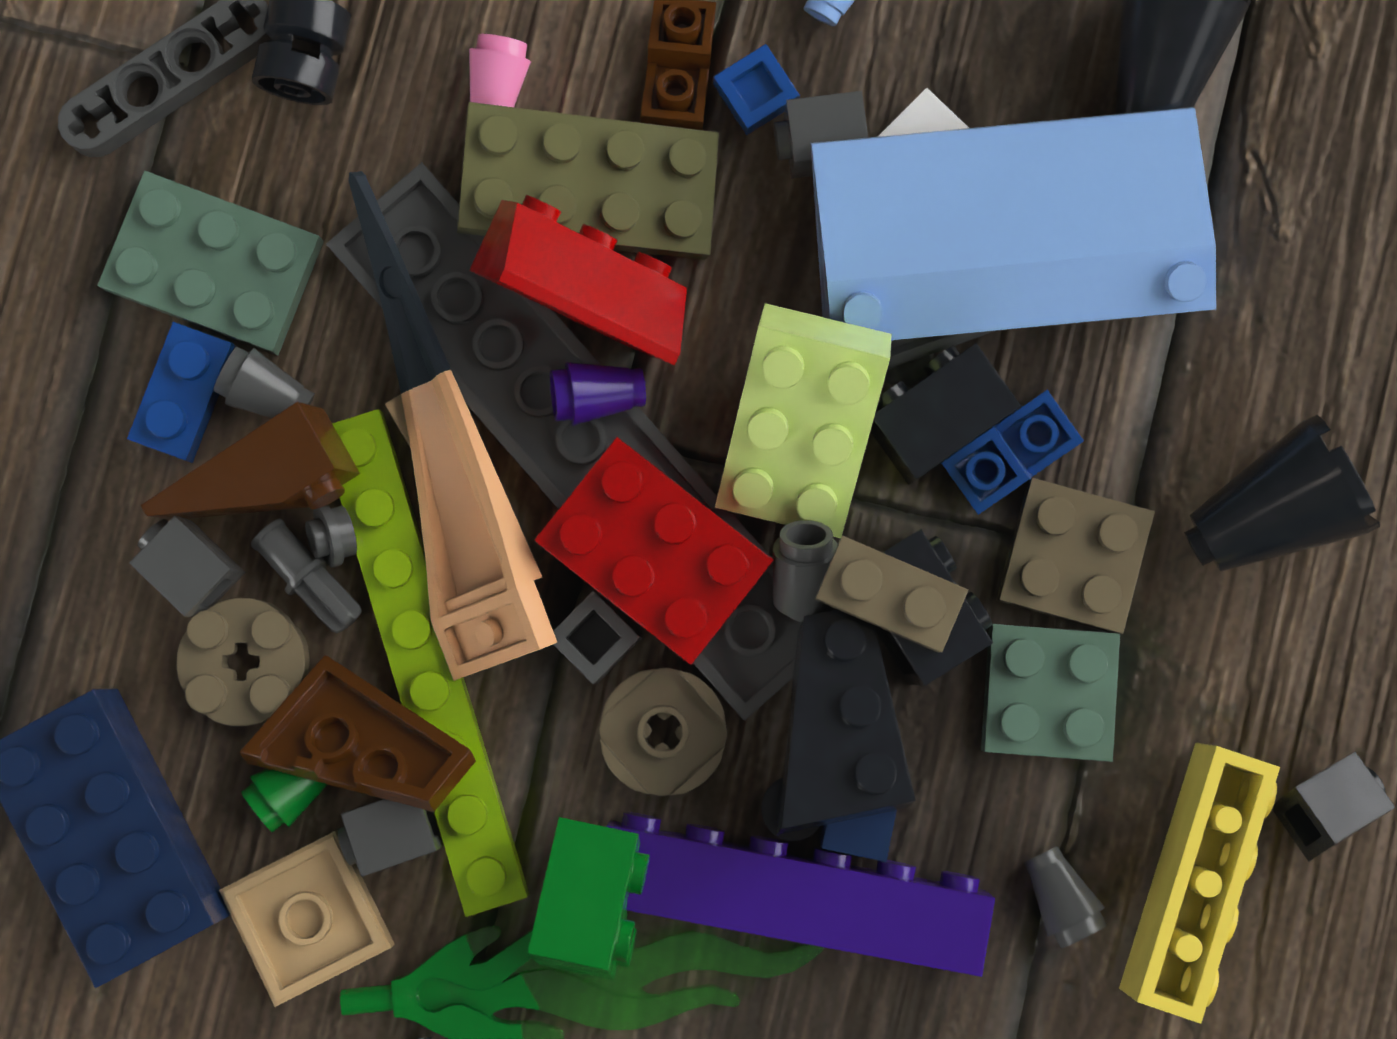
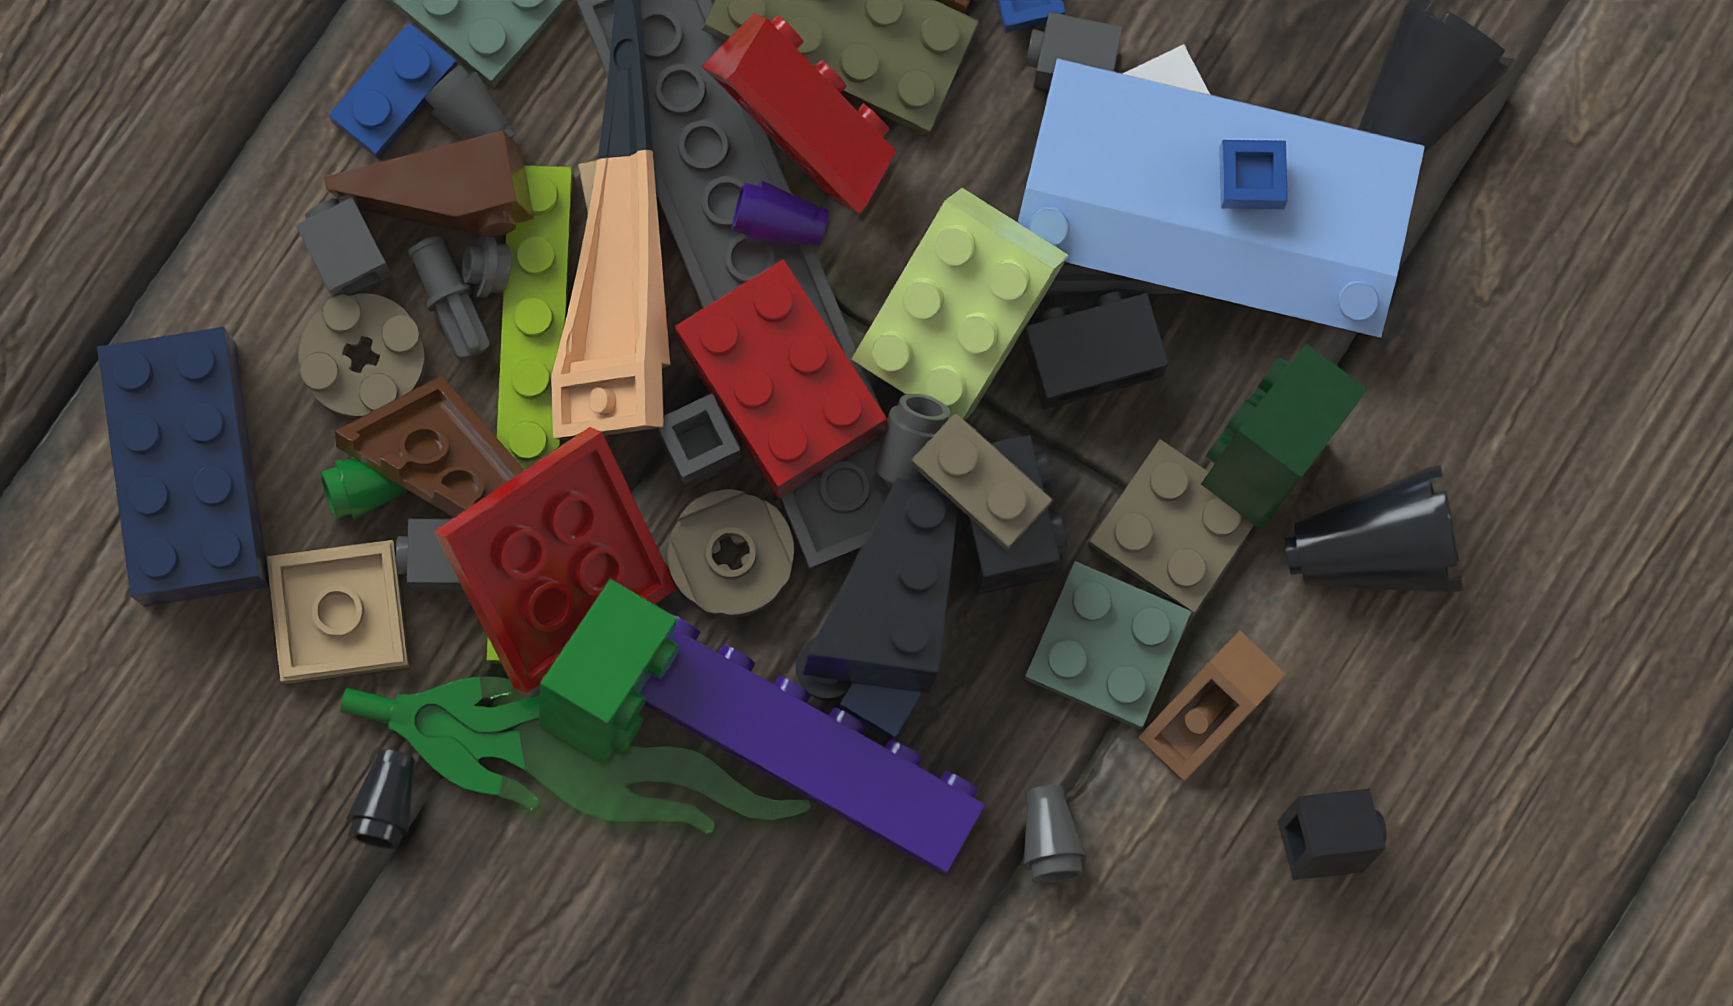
camera: 15 degrees right, 5 degrees down
(489, 803) = (546, 550): none -> red plate
(1012, 452) = (1151, 410): blue slope -> none
(1046, 193) = (1253, 174): none -> blue plate
(1158, 438) = (1279, 433): none -> dark green brick
(1174, 717) = (1212, 705): none -> medium nougat slope
(1199, 881) = (1182, 856): light yellow brick -> none

